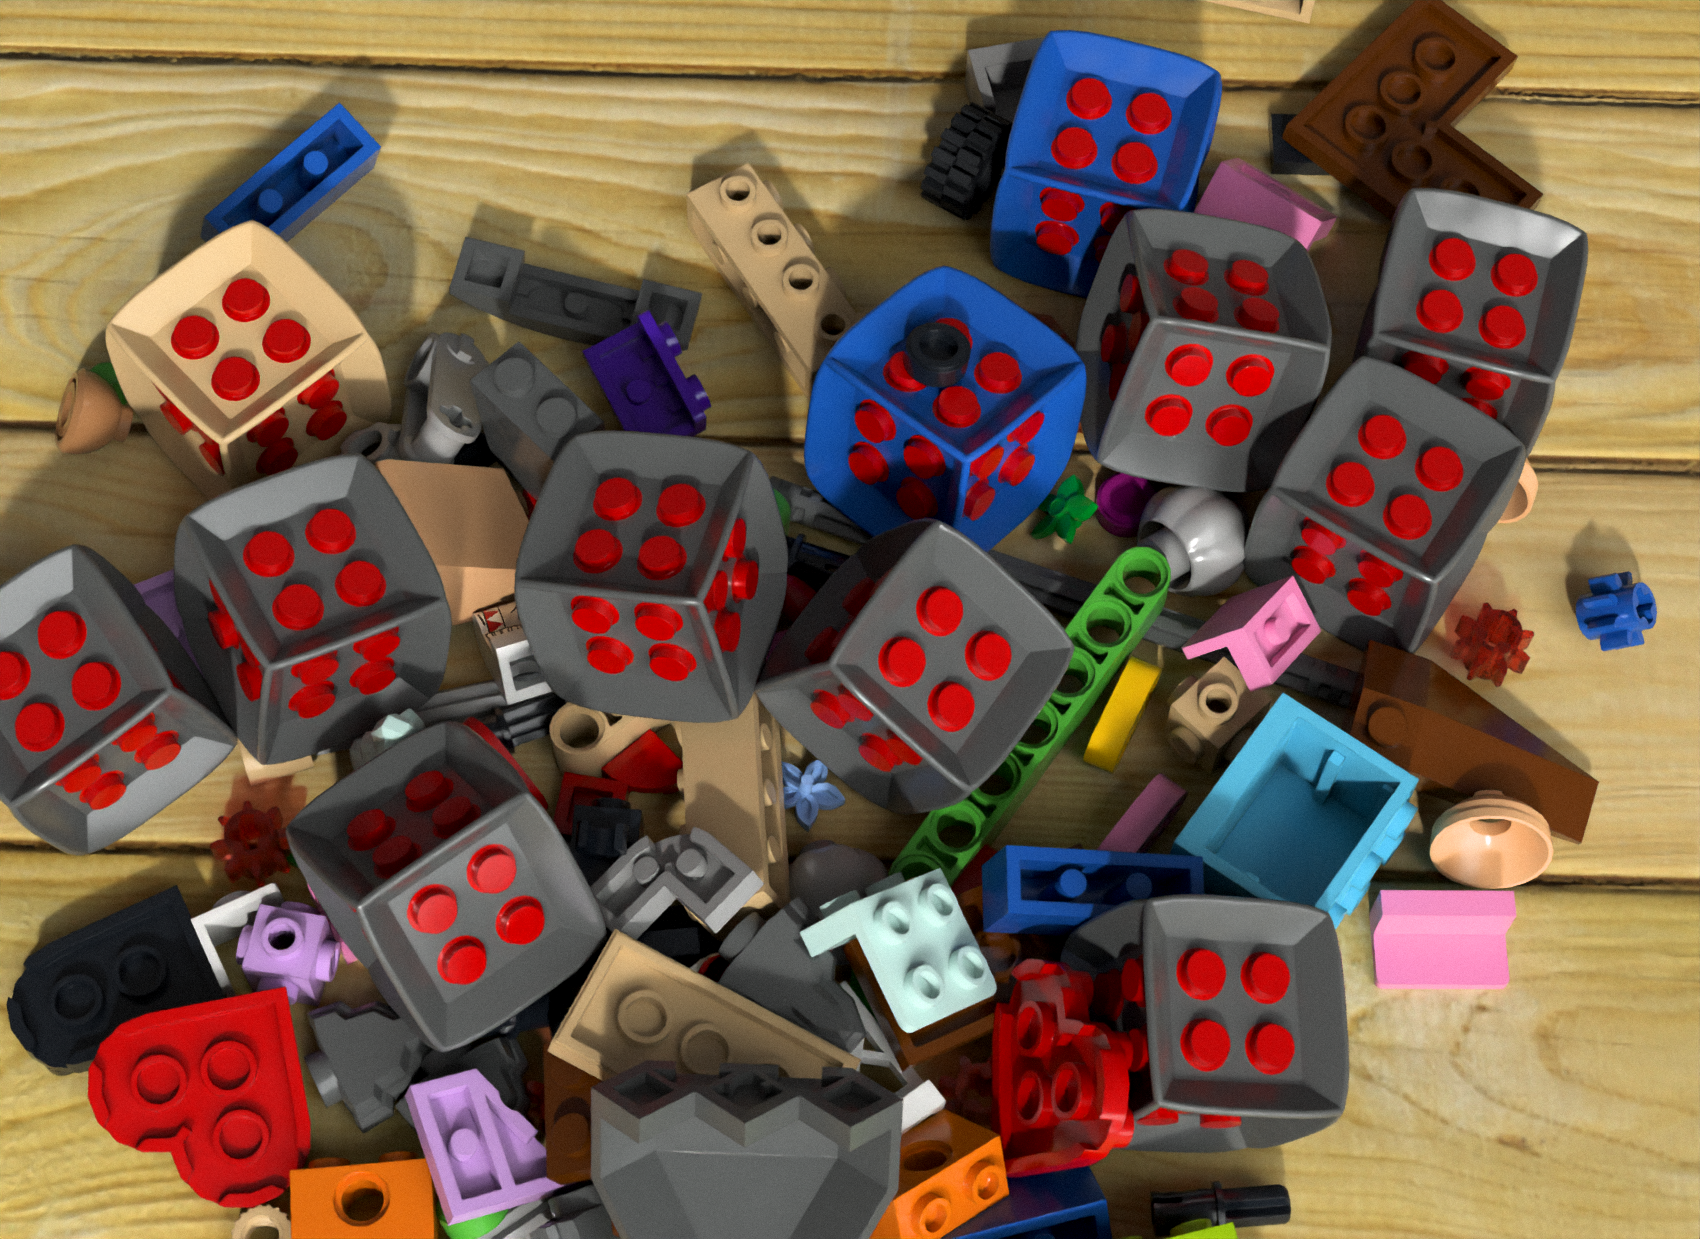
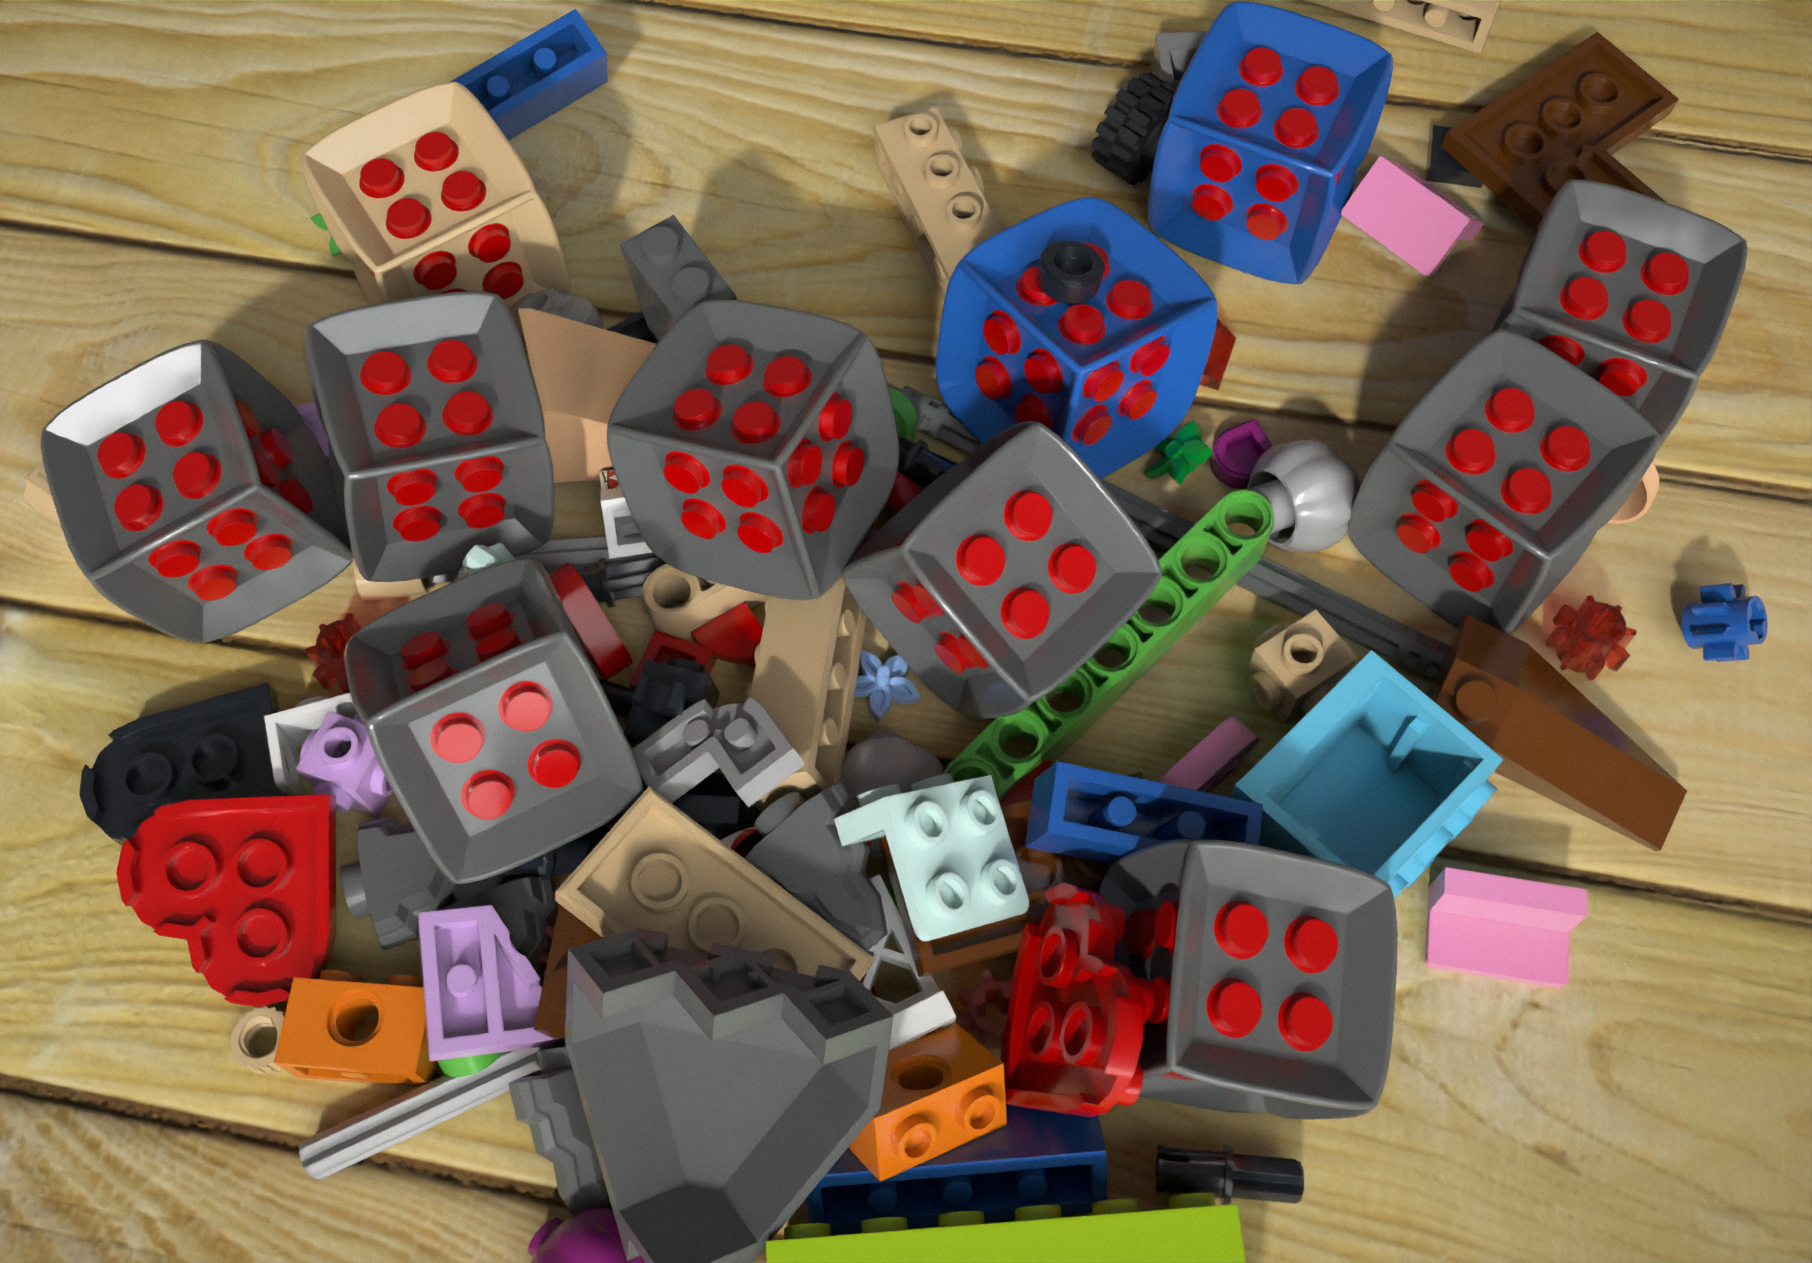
camera: 15 degrees right, 0 degrees up
(90, 415) = (305, 254): medium nougat brick -> none
(440, 400) = (605, 282): light grey piece -> none
(562, 303) = (753, 216): dark grey slope -> none
(645, 381) = (800, 274): dark purple bracket -> none
(1122, 714) = (1205, 653): yellow beam -> none
(1201, 350) = (1337, 310): dark grey piece -> none
(1261, 629) = (1357, 590): bright pink panel -> none
(1495, 852) = (1566, 846): light nougat piece -> none

